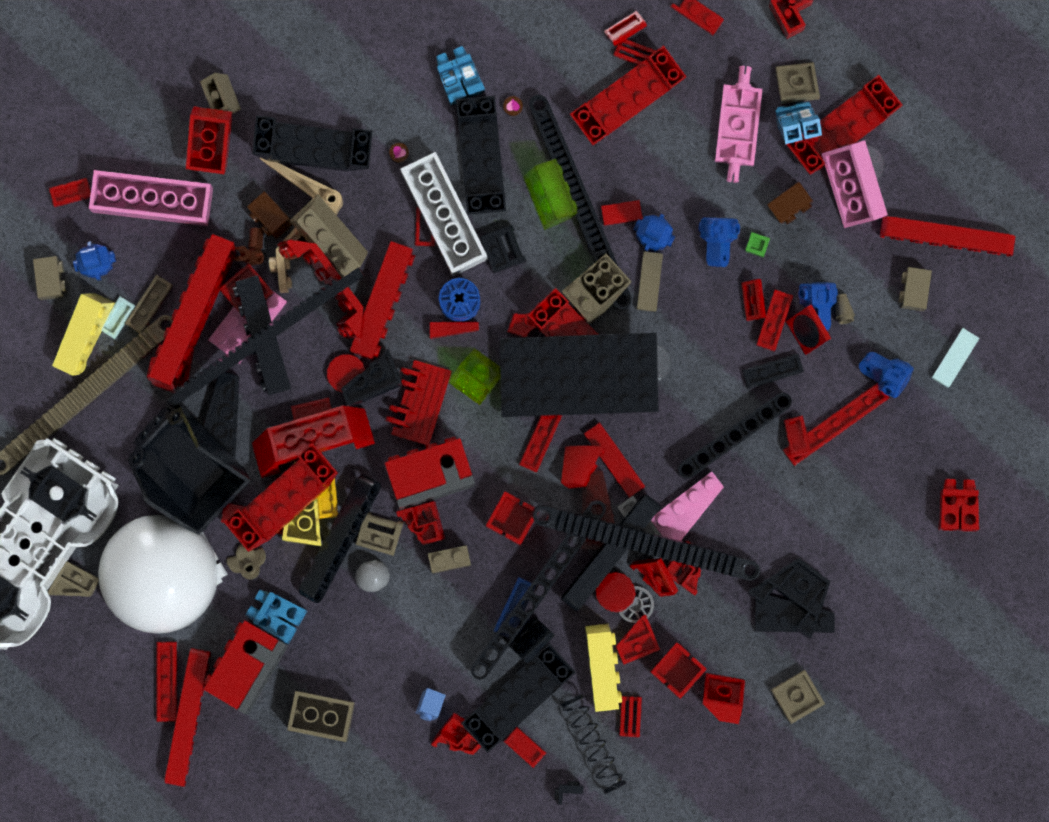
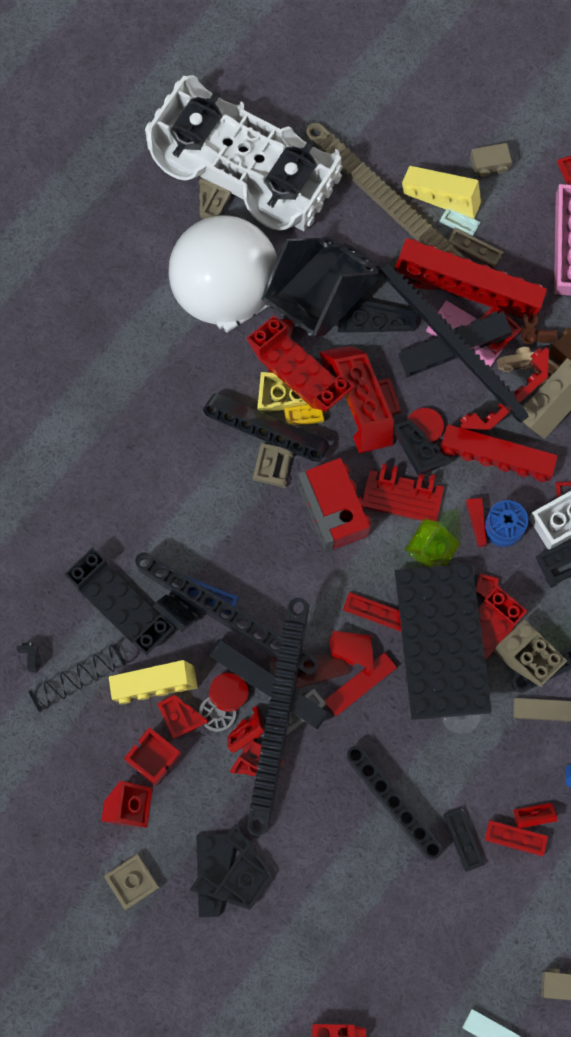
camera: 85 degrees right, 10 degrees down
(94, 261) = (511, 195): blue piece -> none
(166, 681) = (124, 286): red tile -> none
(187, 715) = (90, 303): red beam -> none
(243, 675) = (139, 349): red piece -> none
(245, 559) = (241, 346): dark tan plate -> none
(270, 613) = (189, 376): dark azure hips -> none
(321, 716) = (95, 420): dark tan brick -> none
(372, 576) = (232, 461): light grey hair -> none
(428, 529) = (280, 509): red slope -> none
(430, 704) = (110, 519): medium blue brick -> none
(449, 559) = (251, 530): dark tan brick -> none
(456, 736) = (80, 546): red slope -> none
(511, 518) = (295, 583): red piece -> none
(524, 747) = (72, 613): red tile -> none
(631, 700) = (105, 714): red tile -> none
(683, 512) = (311, 754): bright pink wing -> none
(797, 436) = (397, 867): red tile -> none
(808, 329) = (509, 872): tile -> none
(821, 296) = (541, 881): blue piece -> none
(841, 420) = (414, 909): red tile -> none
(844, 311) = (533, 910): dark tan cone -> none
(890, 374) = (470, 963): blue piece -> none

